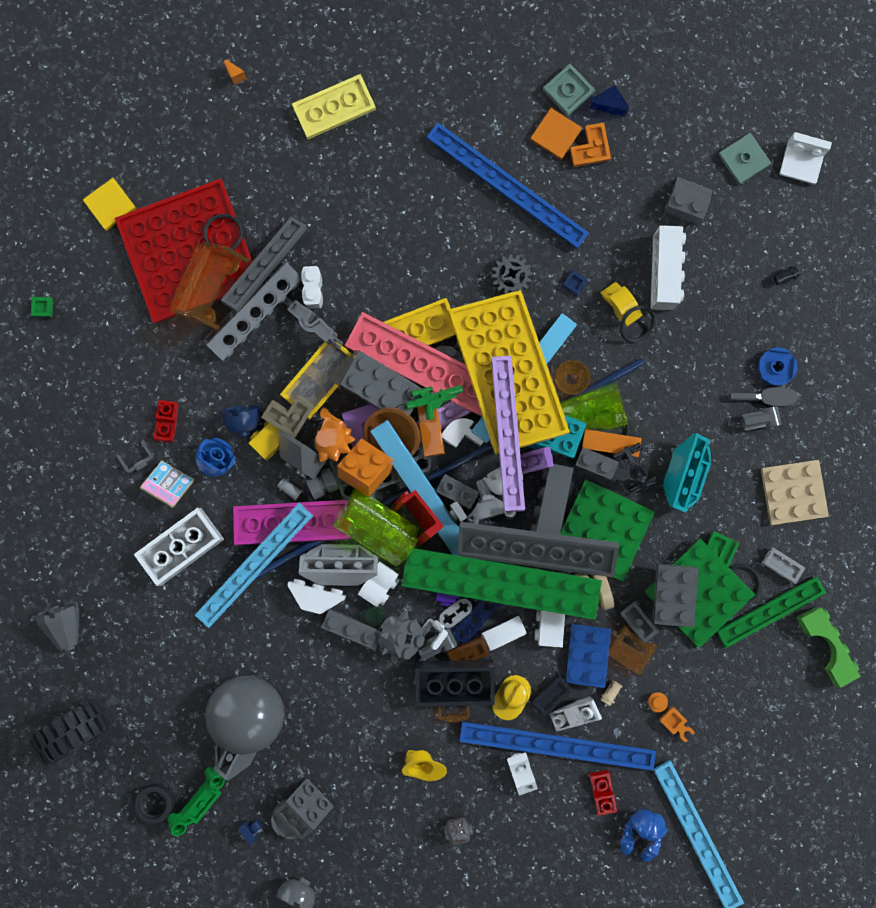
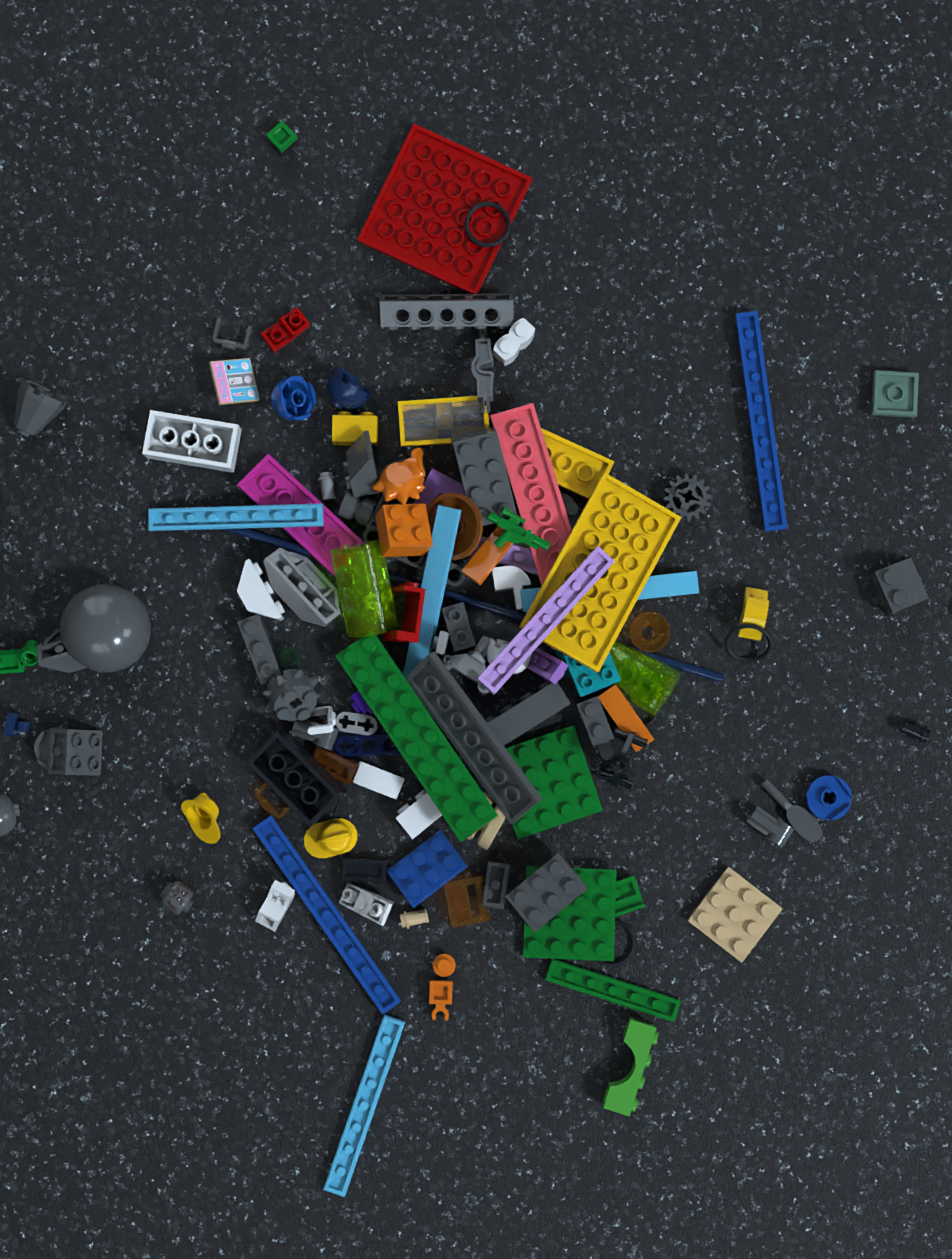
camera: 50 degrees right, 0 degrees up
(109, 202) = (421, 106): yellow tile -> none
(203, 281) = (429, 248): clear orange windscreen -> none
(236, 74) = (632, 103): orange slope -> none
(264, 264) = (494, 283): dark grey plate -> none
(289, 420) = (383, 430): dark tan plate -> none
(334, 106) = (685, 212): light yellow plate -> none
(377, 587) = (315, 637): white brick -> none
(556, 134) = (846, 419): orange tile -> none
(574, 283) = (733, 557): dark blue tile -> none
(595, 151) = (867, 466): orange plate -> none
(603, 792) = (324, 990): red slope -> none
(610, 102) = (919, 438): clear blue slope -> none
(649, 827) = (331, 1054): blue hair -> none
(667, 267) = (816, 626): white brick -> none
(687, 472) = (662, 806): teal wedge -> none
(783, 565) = (662, 963): light grey plate -> none

